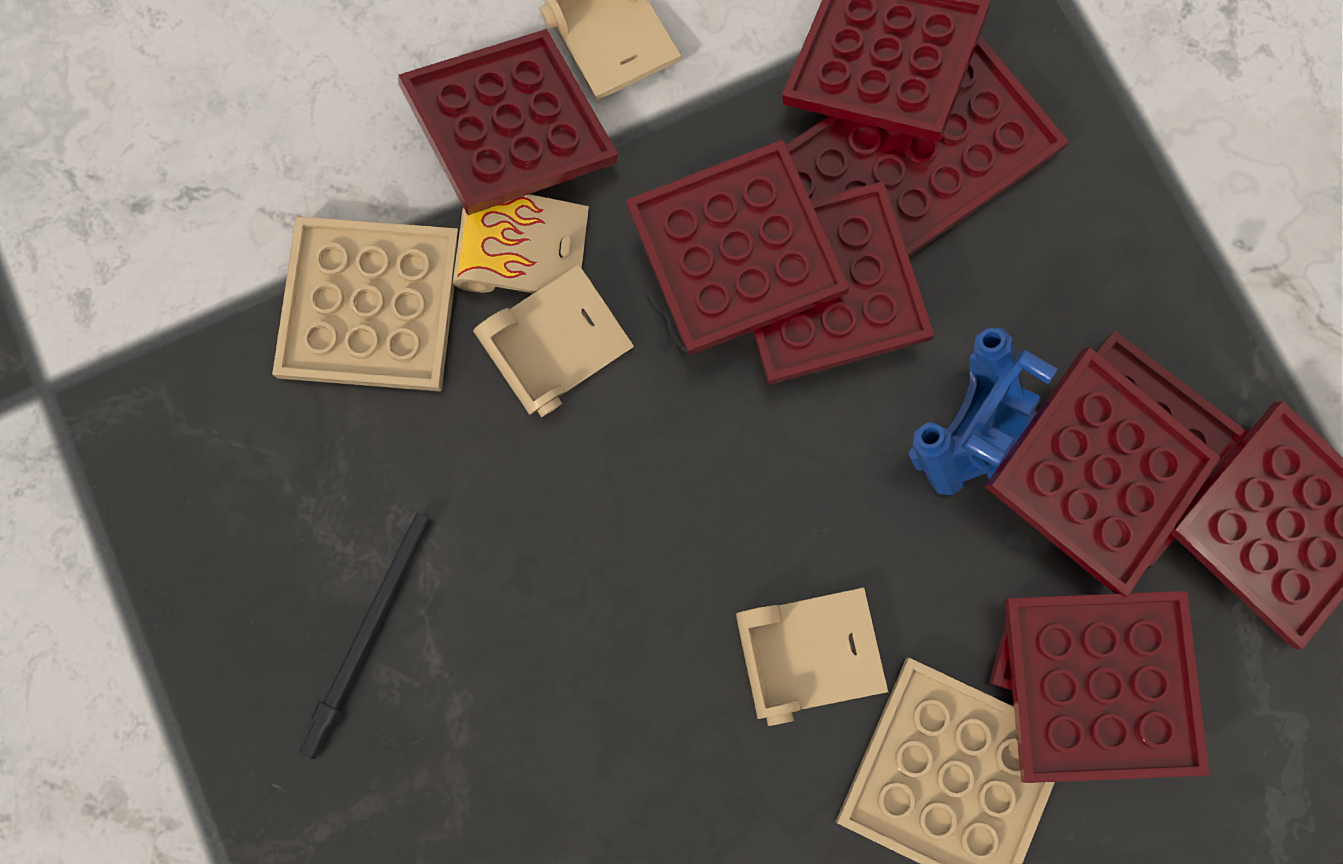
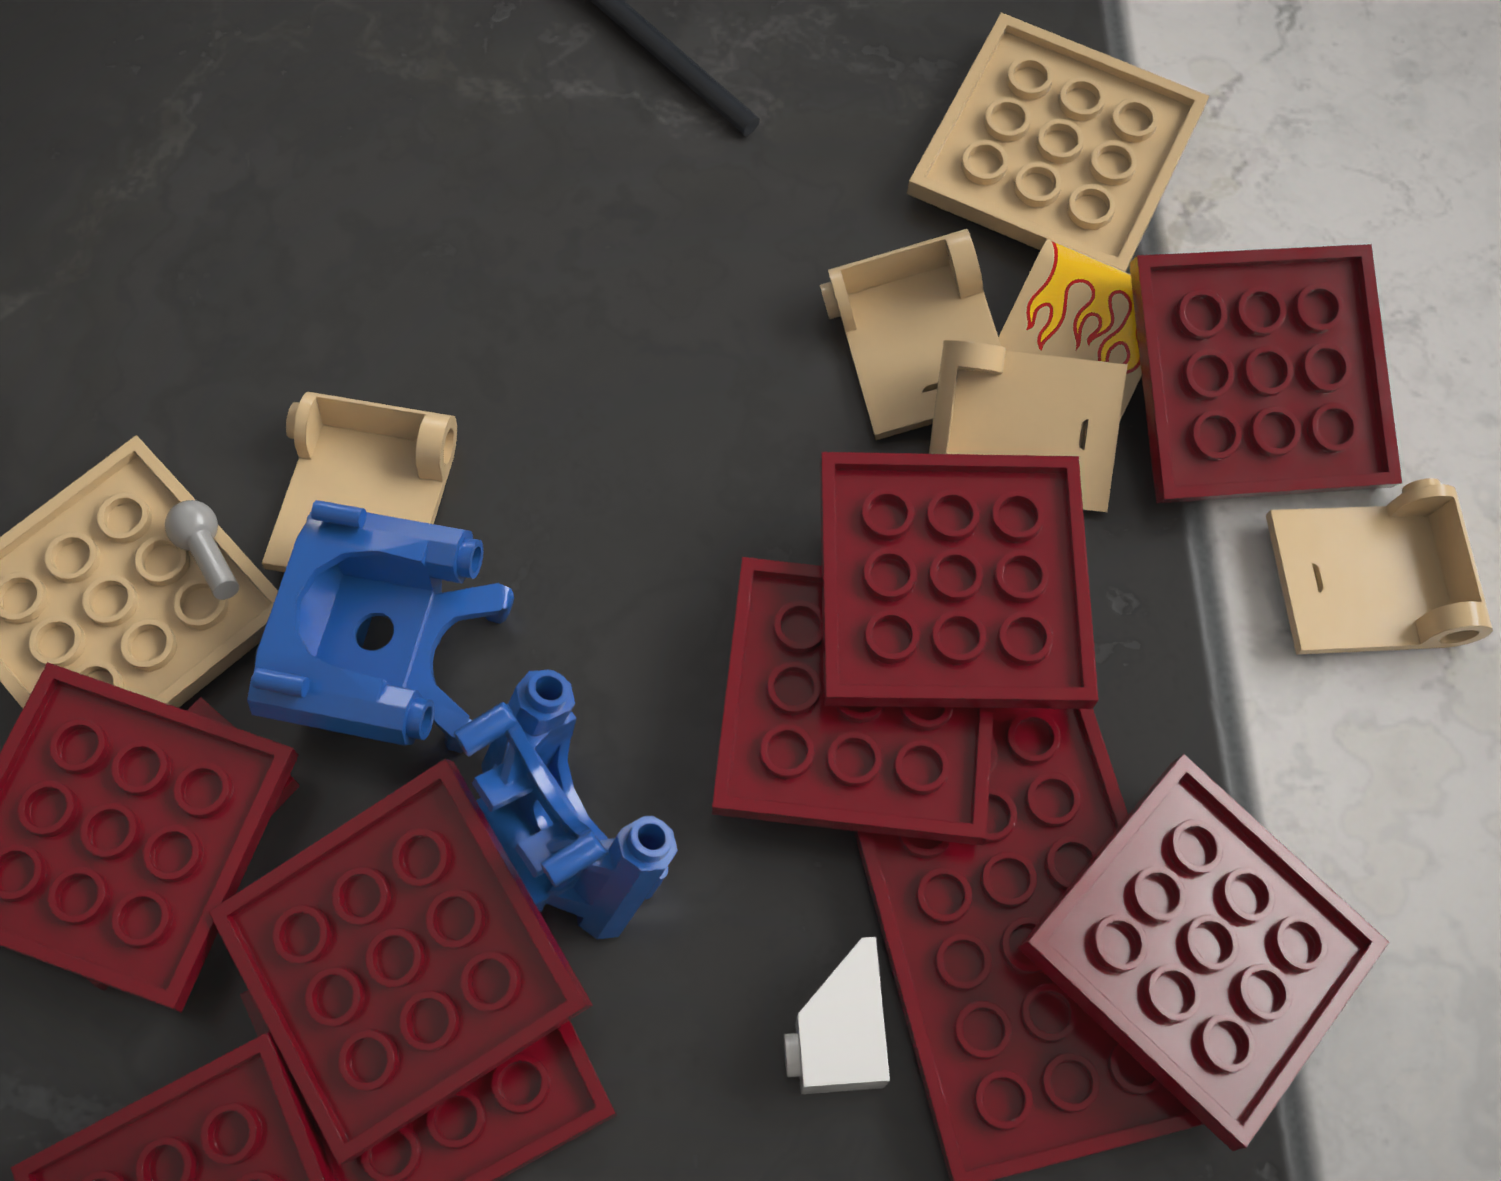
camera: 105 degrees right, 10 degrees down
(597, 252) = (1030, 406): none -> tan door
(887, 746) = (193, 528): none -> light grey bar
(958, 592) = (335, 581): none -> blue piece
(1012, 229) = (842, 1029): none -> white slope

